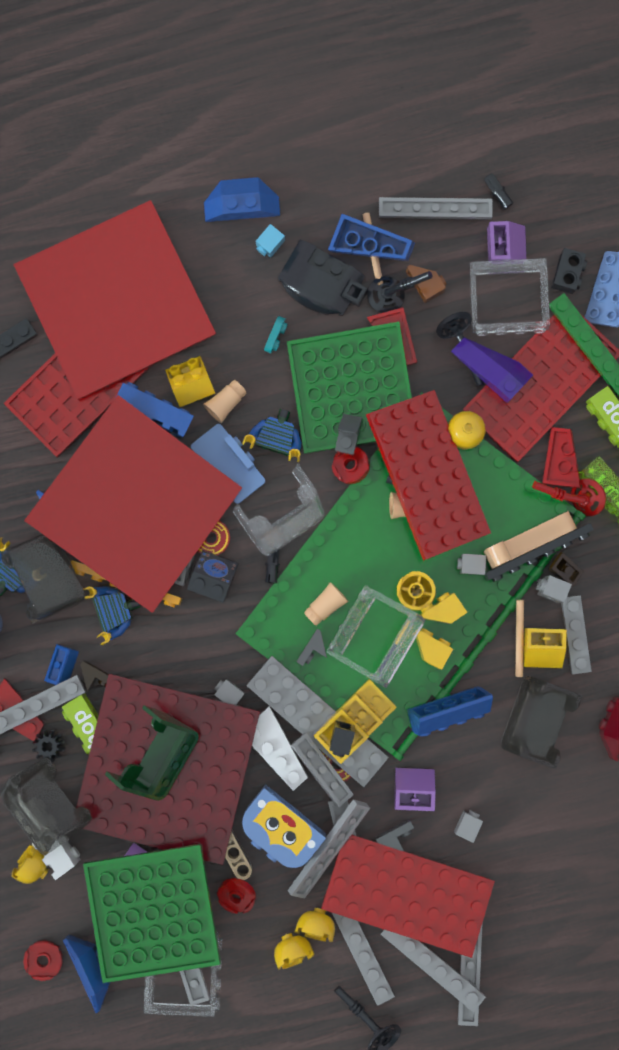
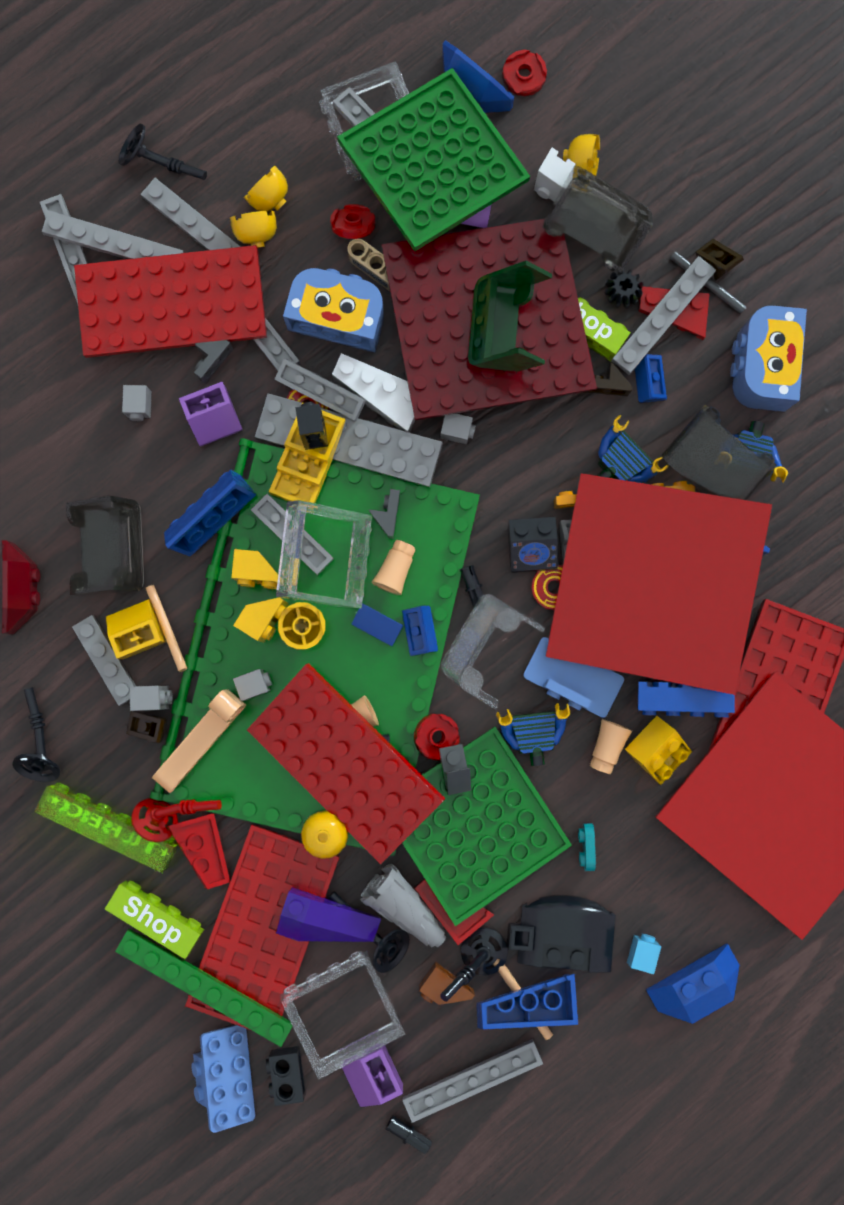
camera: 155 degrees right, 0 degrees up
(328, 549) = (420, 630): none -> blue slope
(328, 849) = (273, 318): light grey plate -> none
(358, 568) = (377, 624): none -> blue slope
(400, 683) = (274, 517): none -> light grey plate
(432, 356) = (402, 905): none -> light grey cone
(546, 549) = (175, 738): black plate -> none

